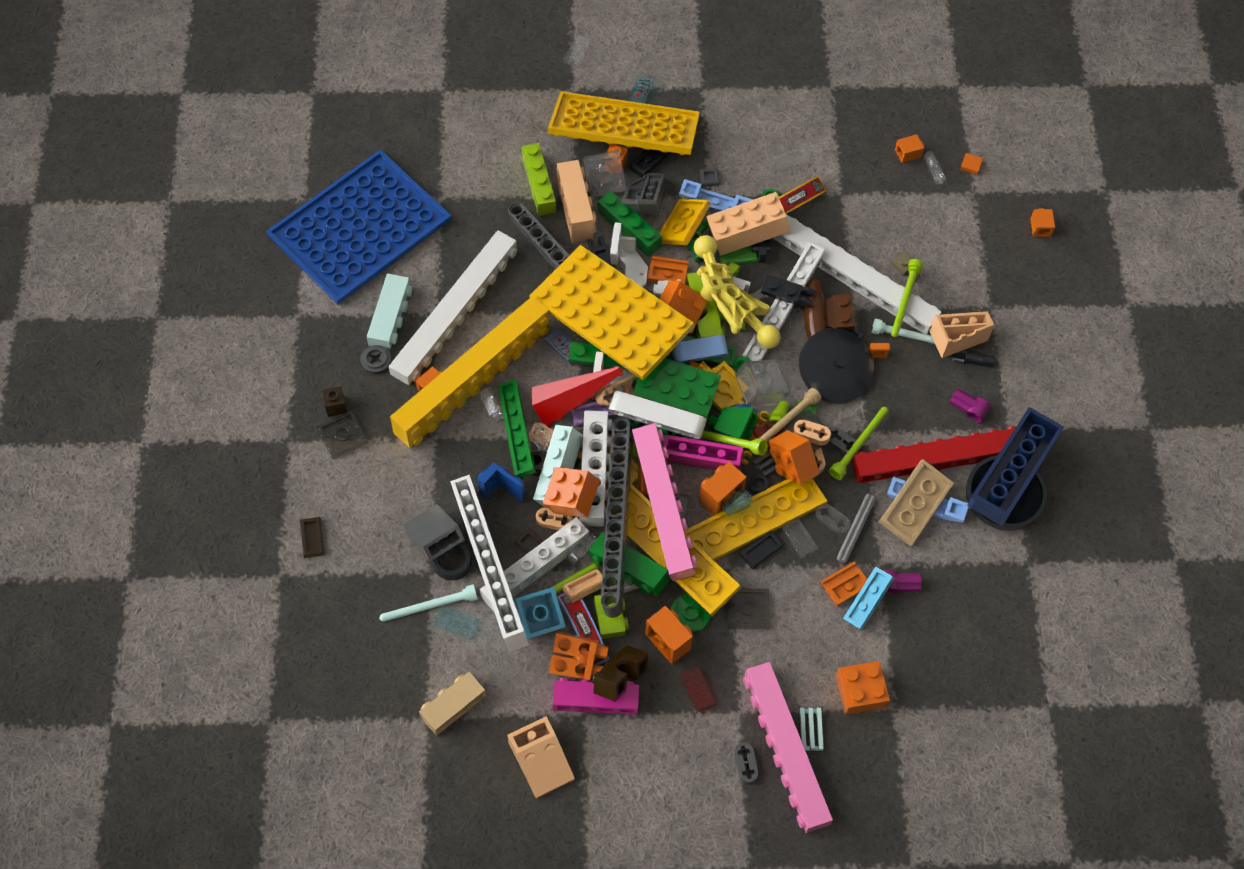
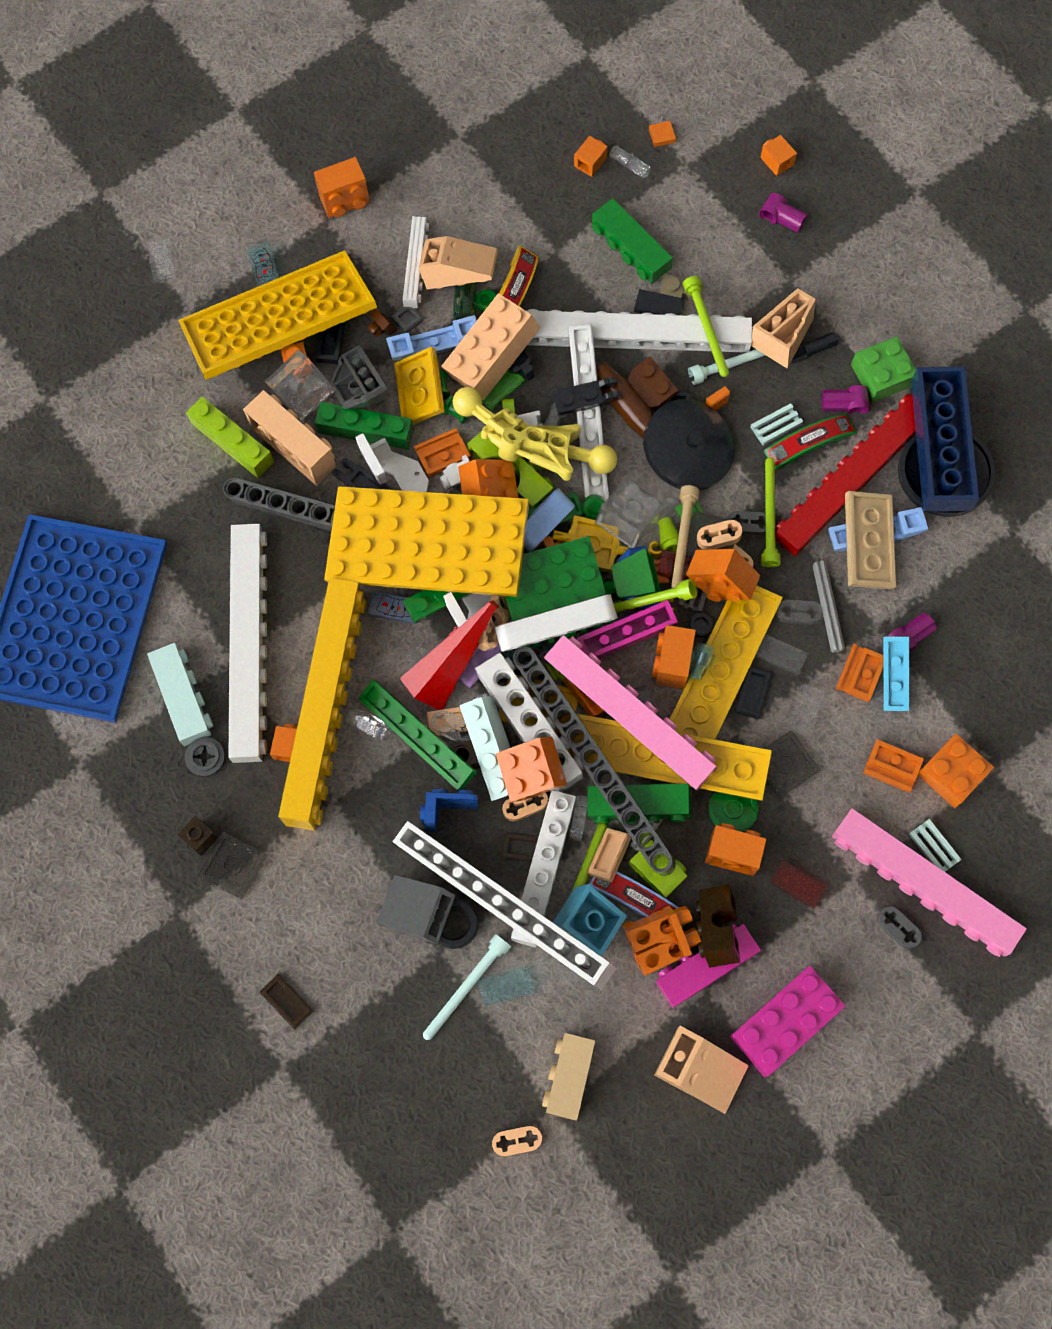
camera: 30 degrees left, 10 degrees up
(386, 724) = (515, 1134): none -> light nougat beam
(621, 767) = (787, 1021): none -> dark pink brick
(688, 170) = (380, 324): none -> reddish brown tile
(725, 71) = (342, 187): none -> orange brick
(740, 146) = (413, 277): none -> white piece
(755, 187) = (464, 300): none -> clear green arm
(764, 159) = (455, 262): none -> light nougat slope
(821, 657) = (893, 766): none -> orange plate
(885, 266) = (657, 303): none -> black tile
(893, 389) = (793, 415): none -> light aqua tile
(896, 217) = (631, 241): none -> green brick
(926, 414) = (809, 439): none -> slope
(1011, 400) = (884, 369): none -> bright green brick
(1016, 259) = (779, 211): none -> magenta piece

